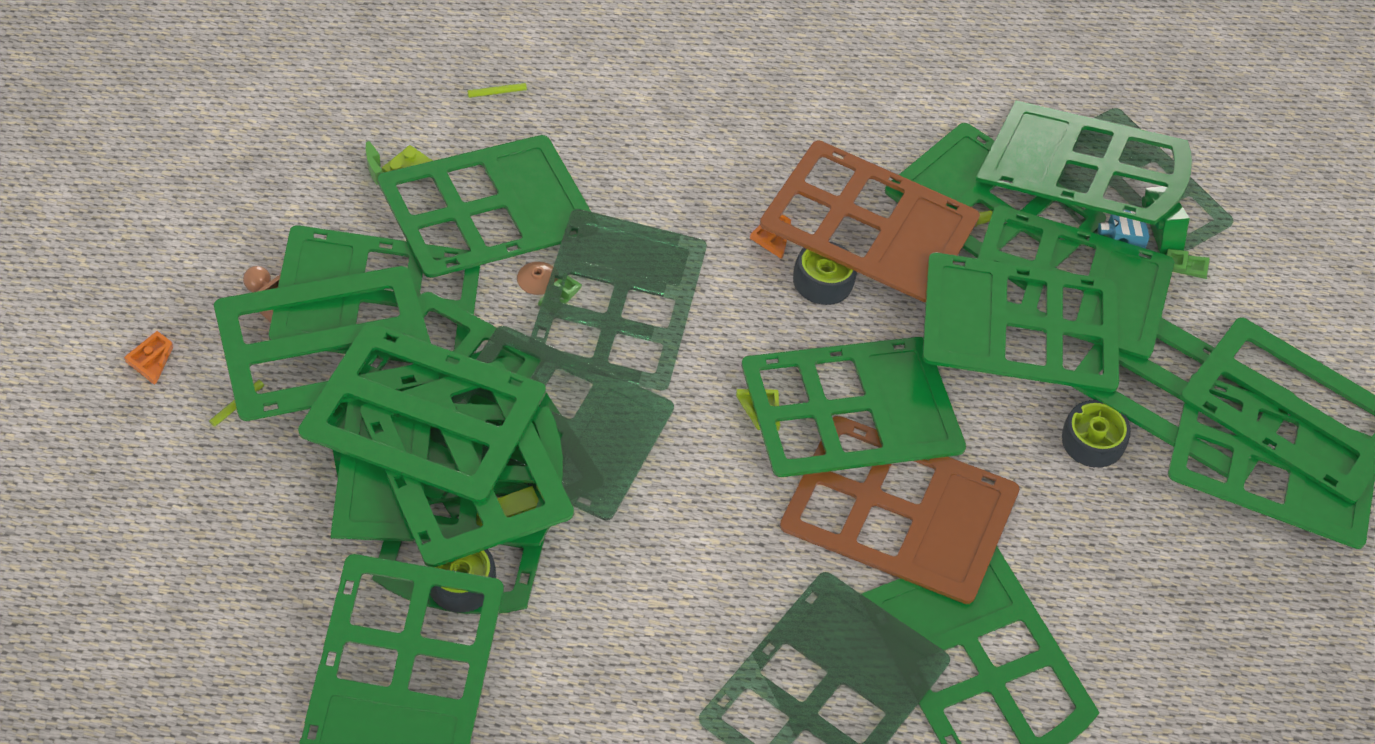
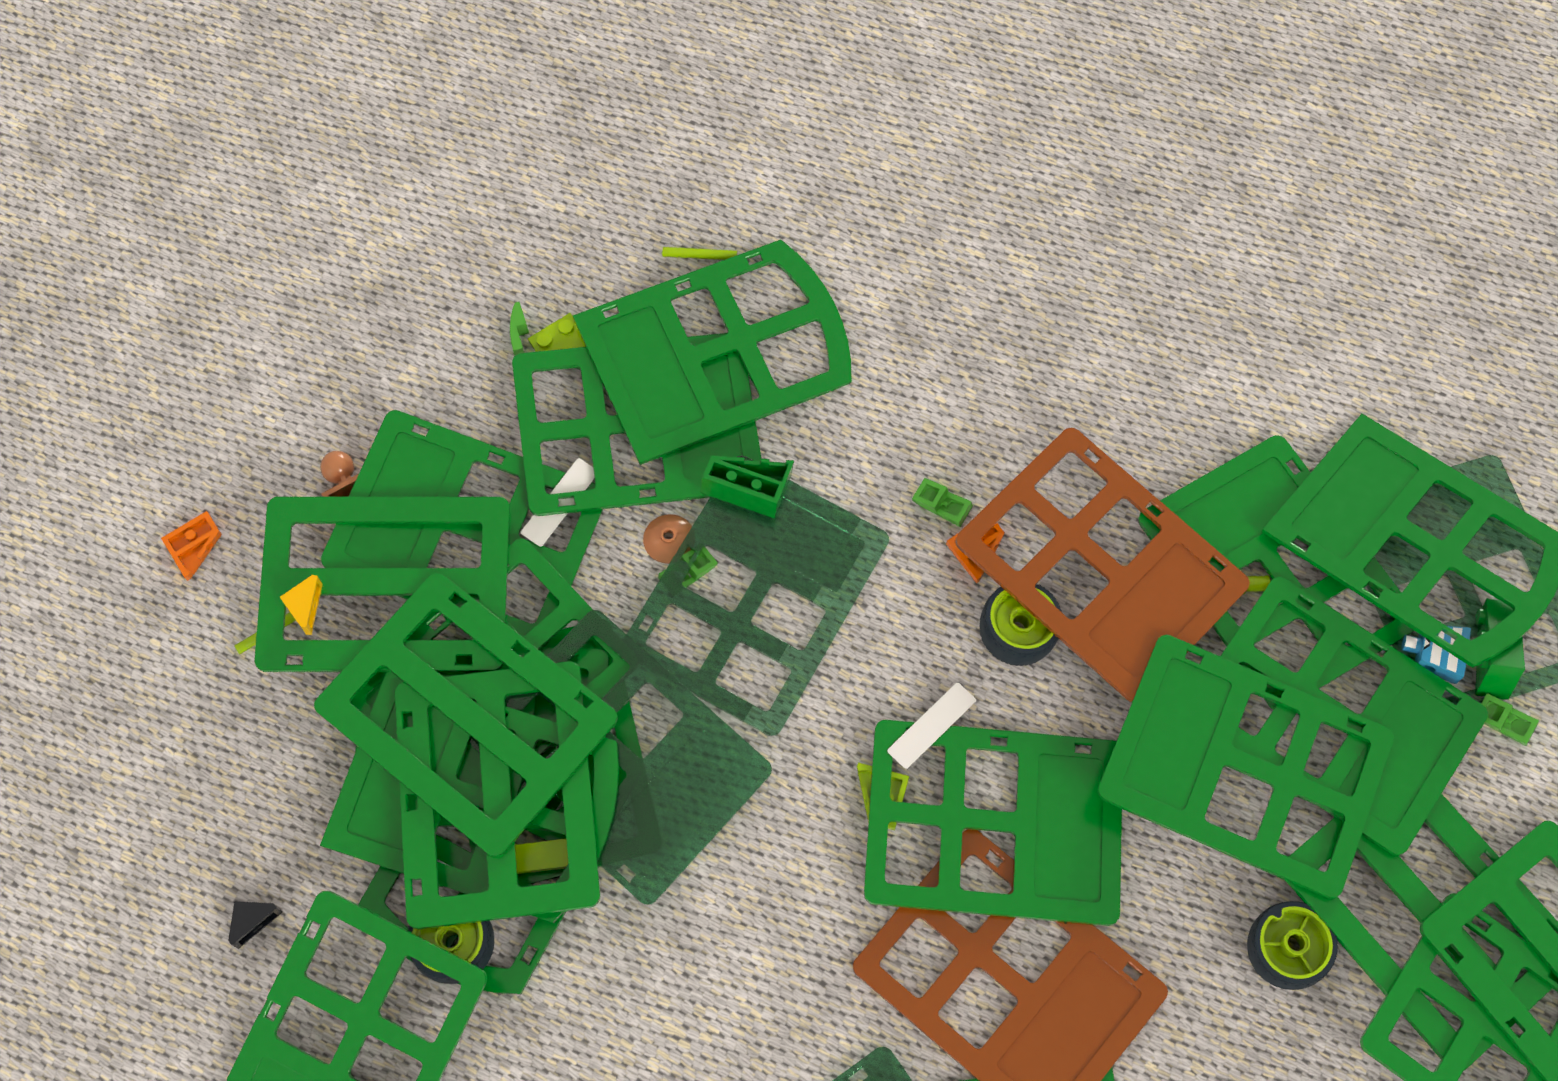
camera: 25 degrees right, 15 degrees up
(265, 362) = (303, 602): none -> yellow slope
(288, 604) = (250, 919): none -> black slope
(453, 247) = (576, 479): none -> white sticker
(497, 172) = (658, 374): none -> green door
(589, 221) = (747, 483): none -> green wedge
(732, 211) = (941, 502): none -> bright green slope
(783, 352) = (931, 725): none -> white sticker

